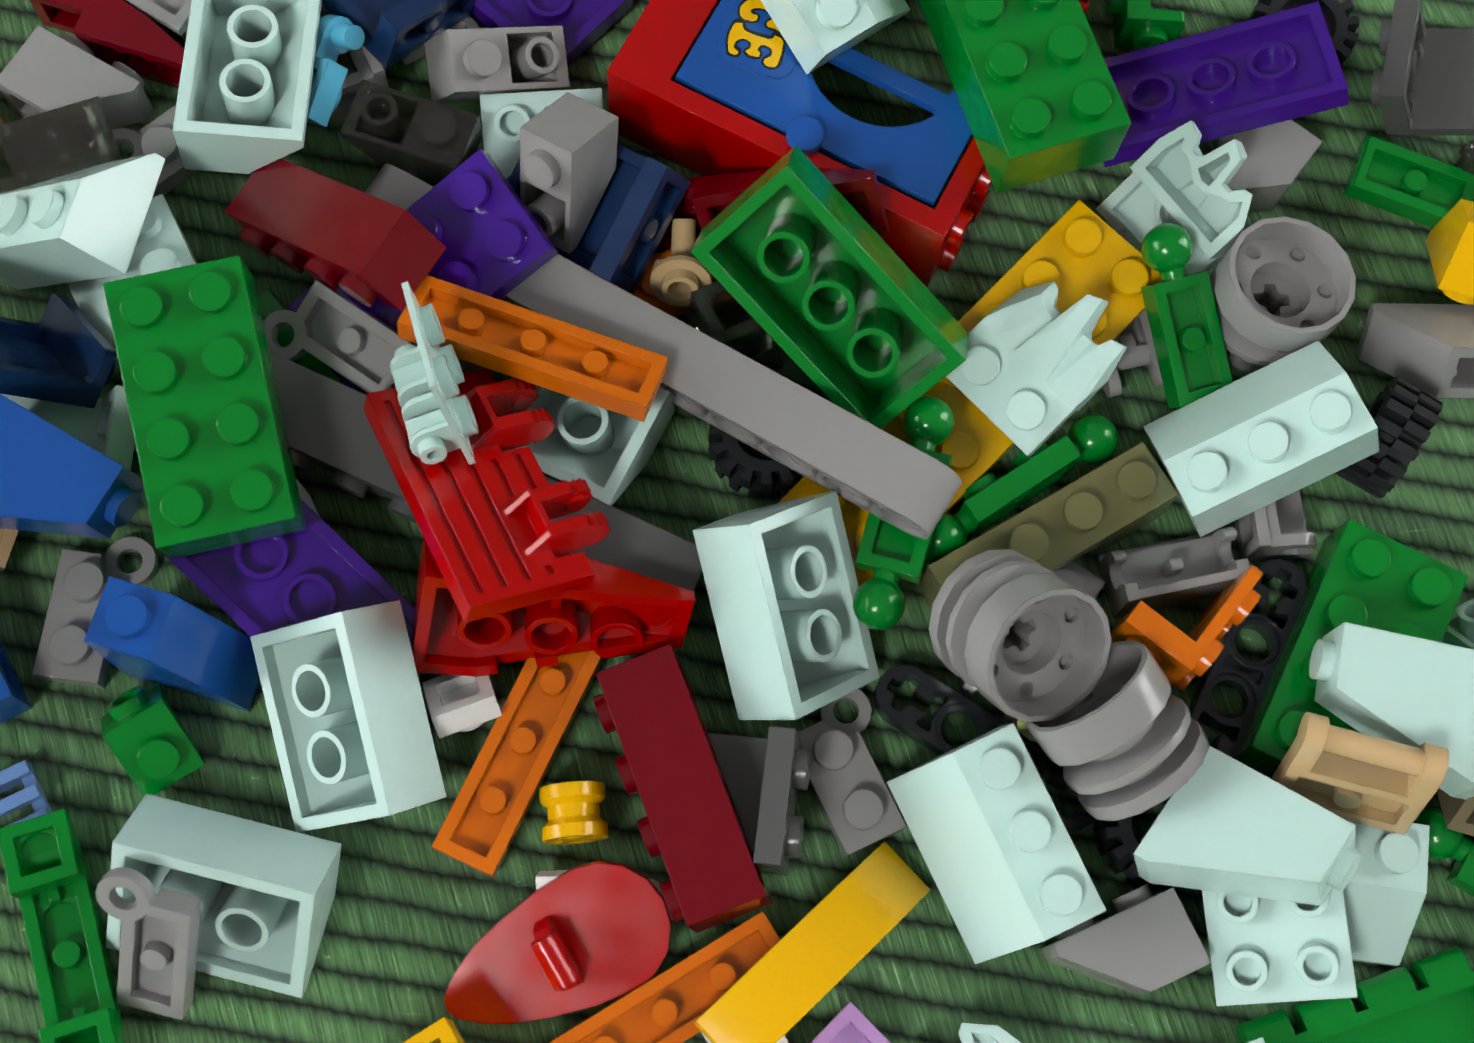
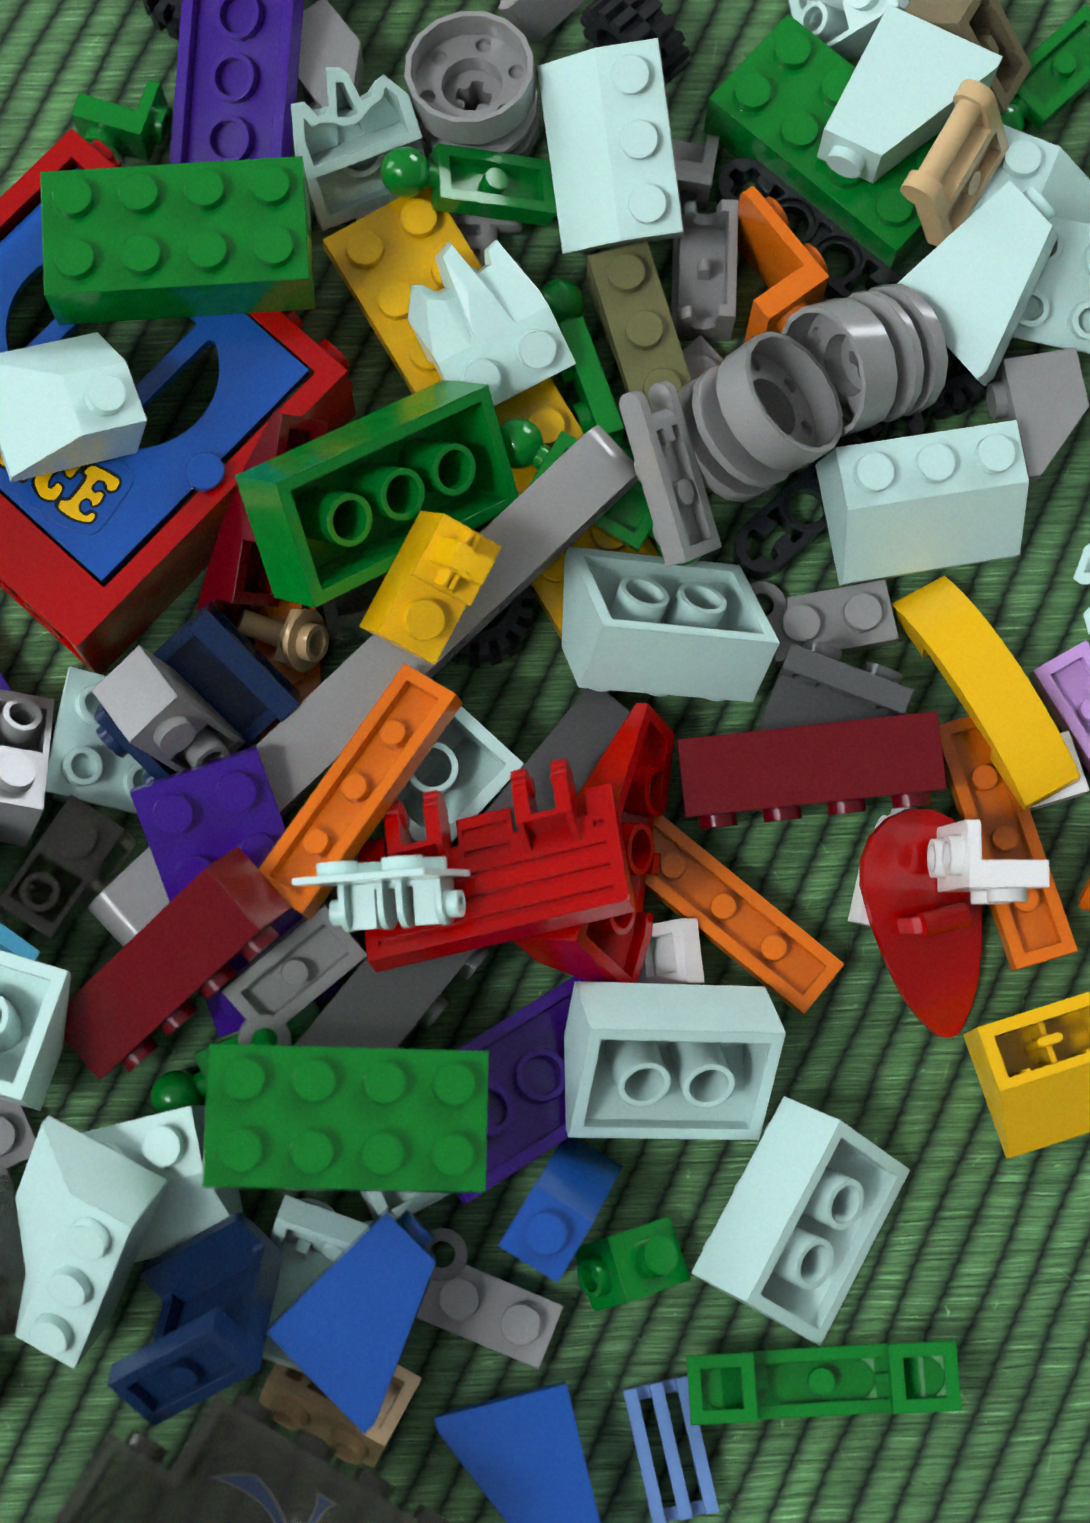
camera: 70 degrees left, 5 degrees up
(155, 943) = (841, 1286): light grey hinge -> none
(573, 812) = (802, 875): yellow wheel -> none
(600, 994) = (959, 867): none -> white bracket
(741, 350) = (430, 585): none -> yellow hinge
(927, 558) = (669, 474): none -> light grey hinge

